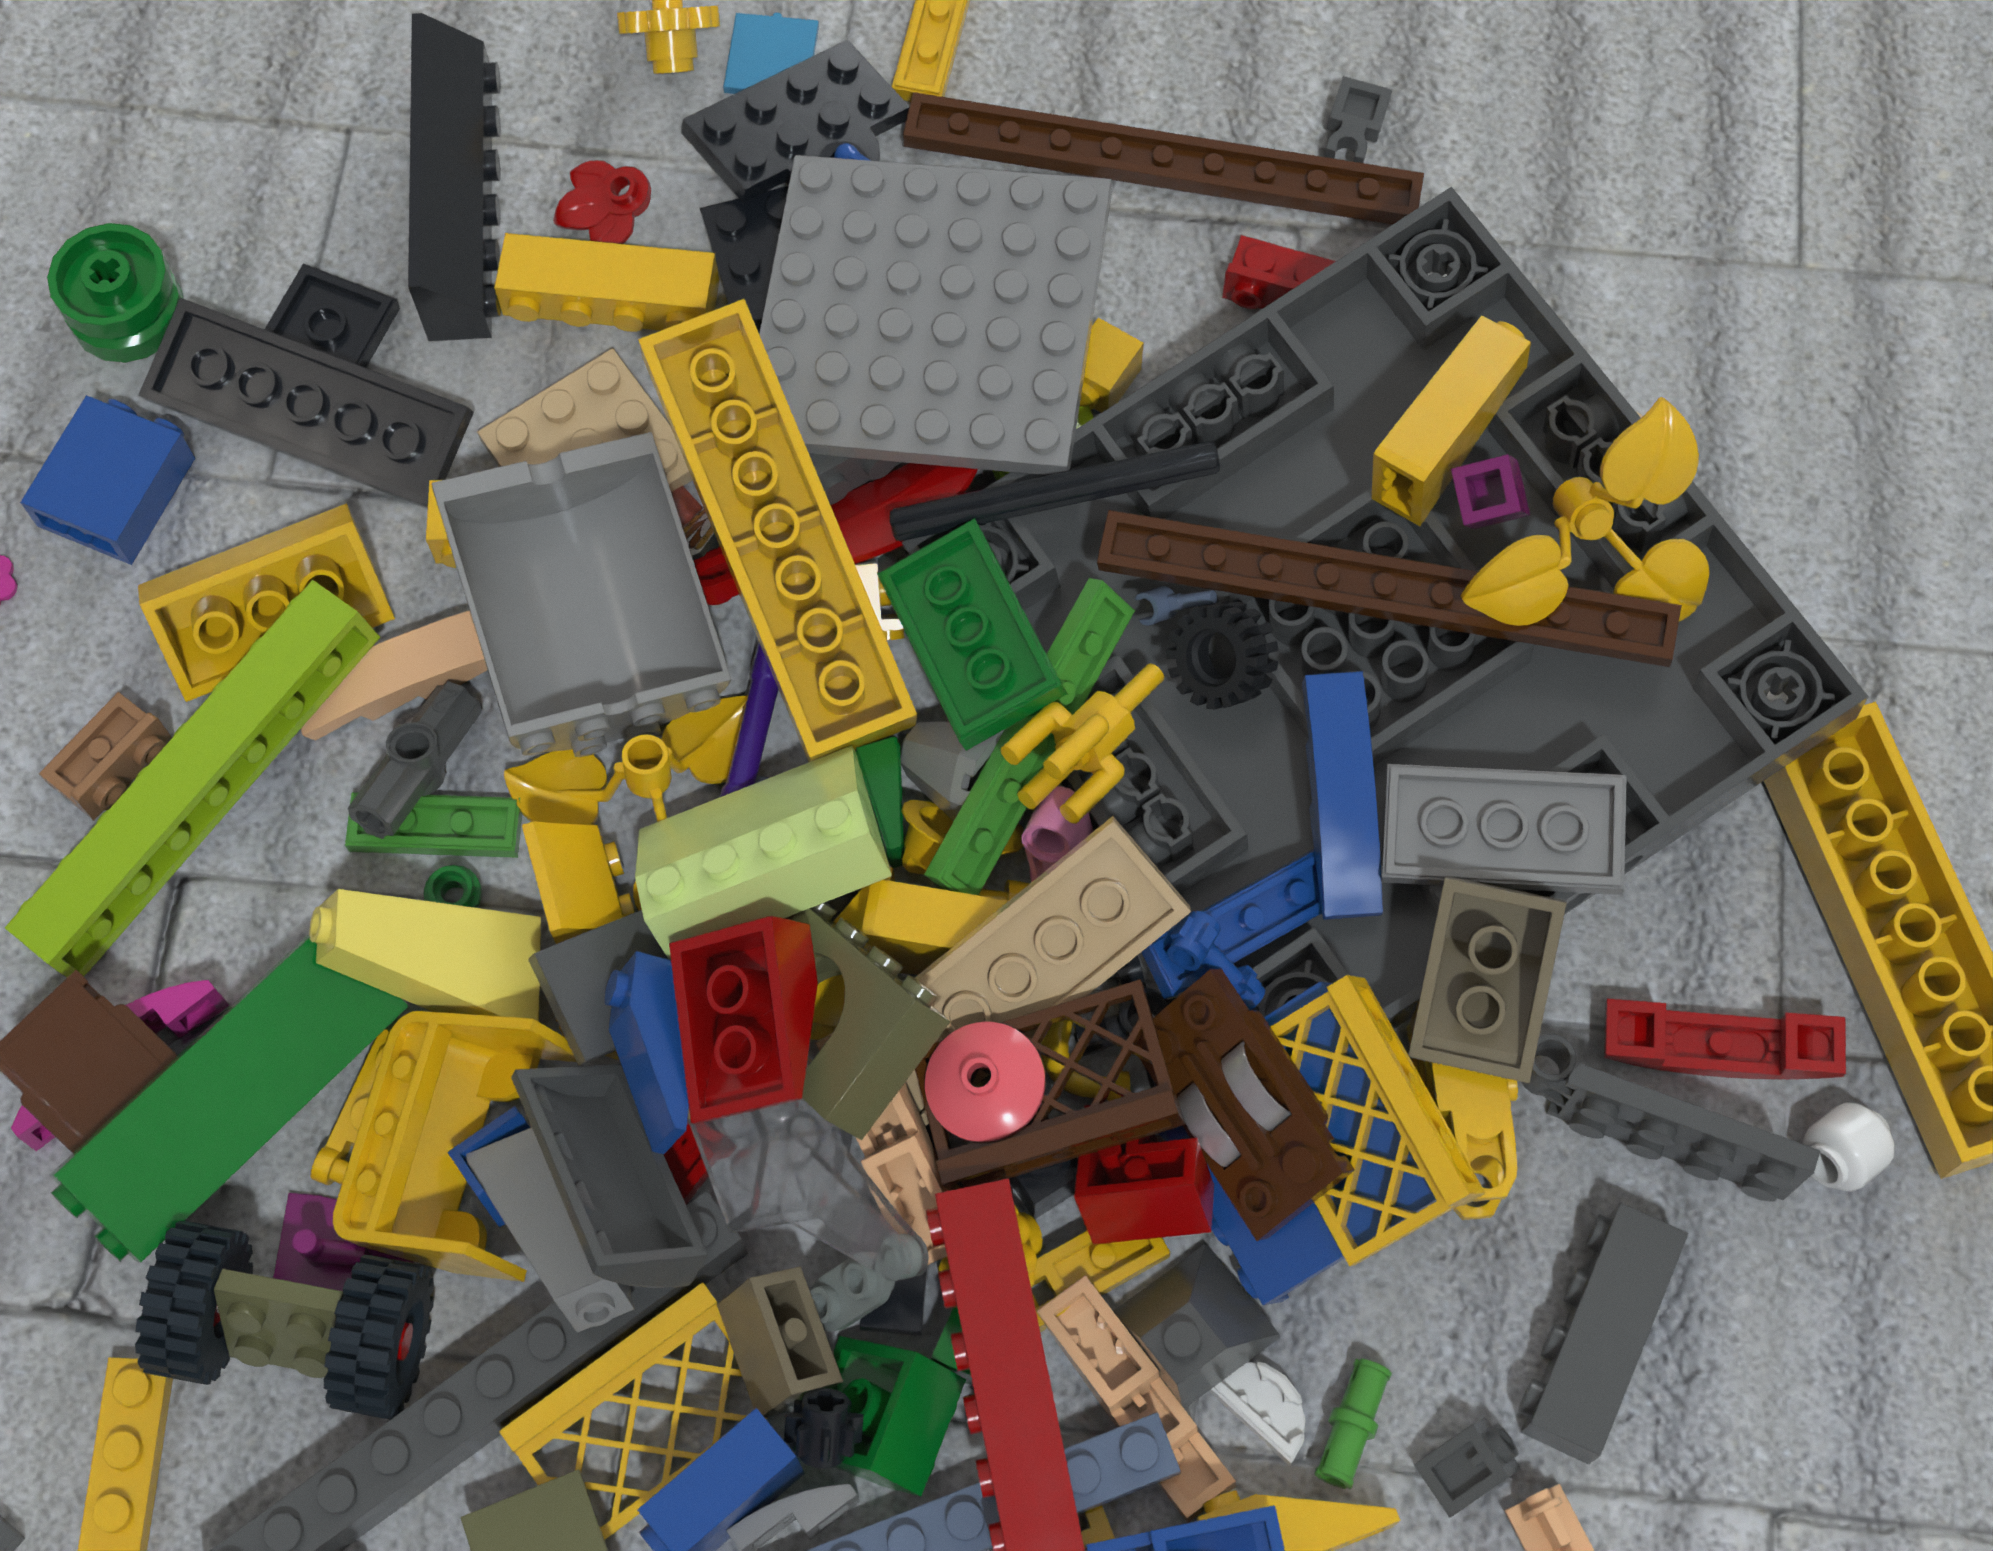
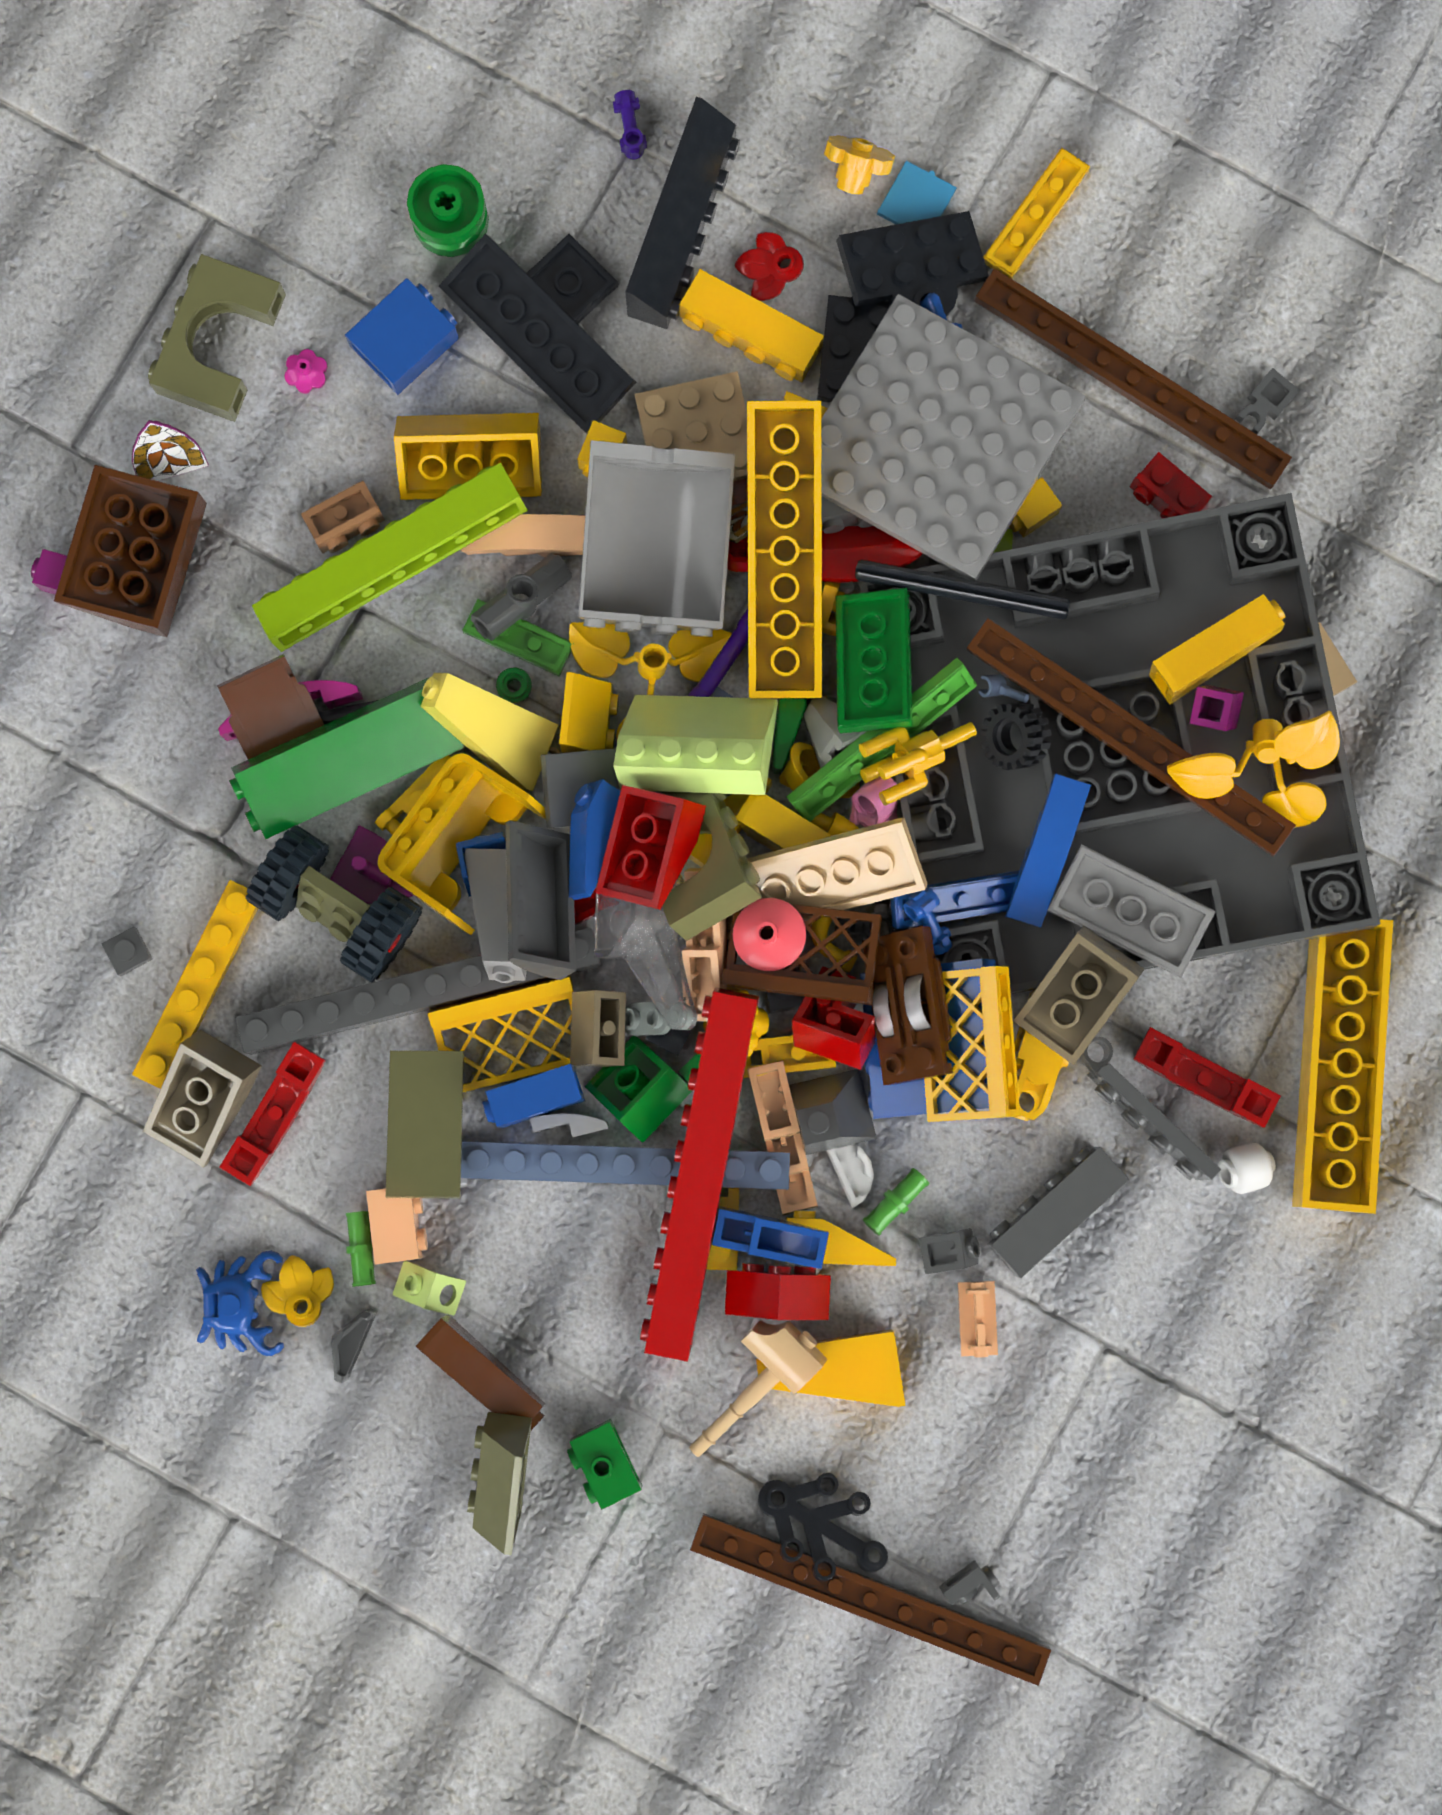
camera: 20 degrees right, 15 degrees up
(349, 117) = (633, 140): none -> dark purple bar
(823, 1428) = (603, 1087): black gear -> none

